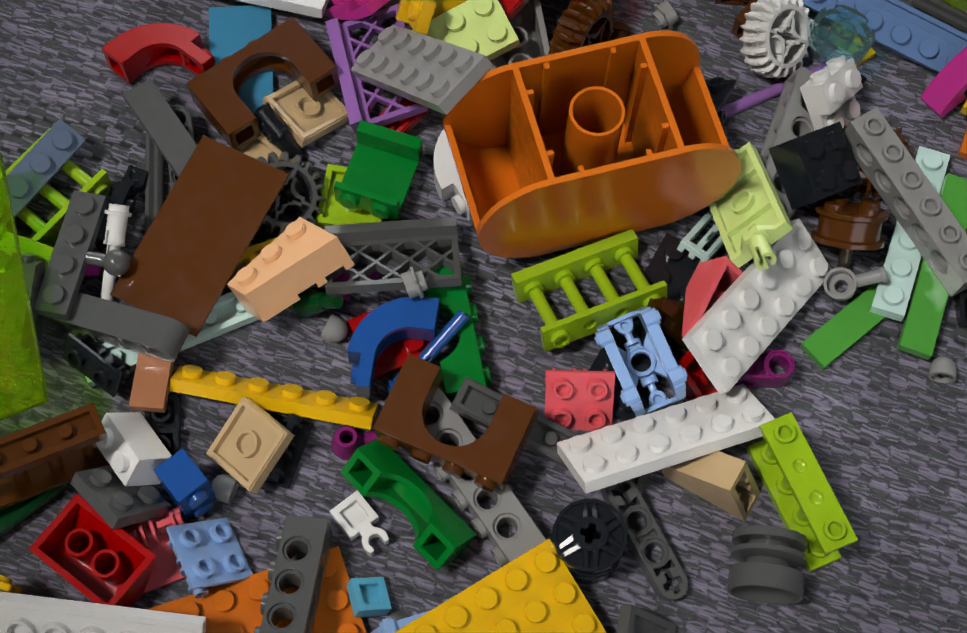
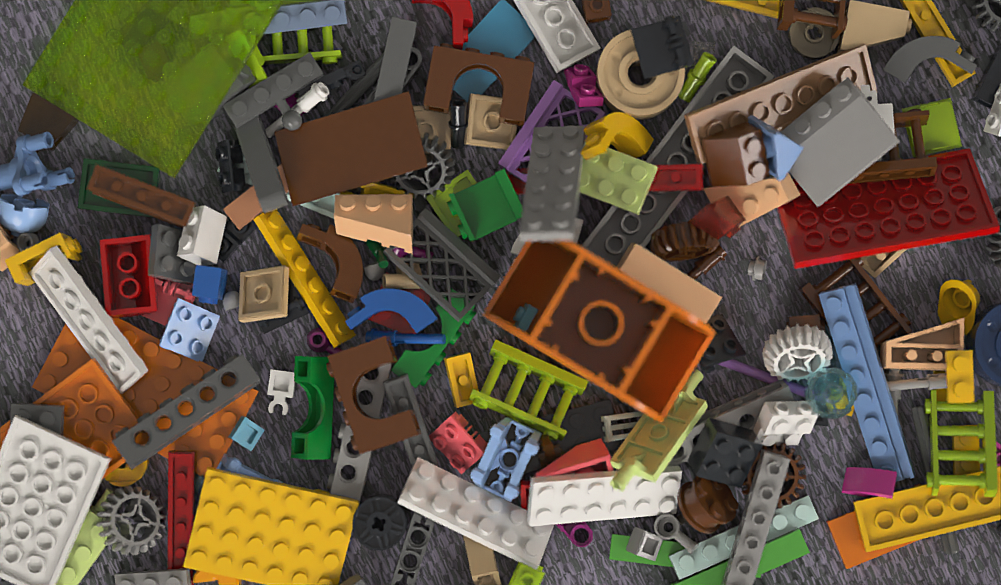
camera: 50 degrees right, 20 degrees up
(287, 340) = (344, 255): none -> reddish brown arch
(366, 302) = (401, 280): none -> tan piece
(414, 283) = (430, 298): light grey plate -> none
(518, 342) = (461, 378): none -> yellow plate
(838, 320) = (644, 544): none -> light grey slope

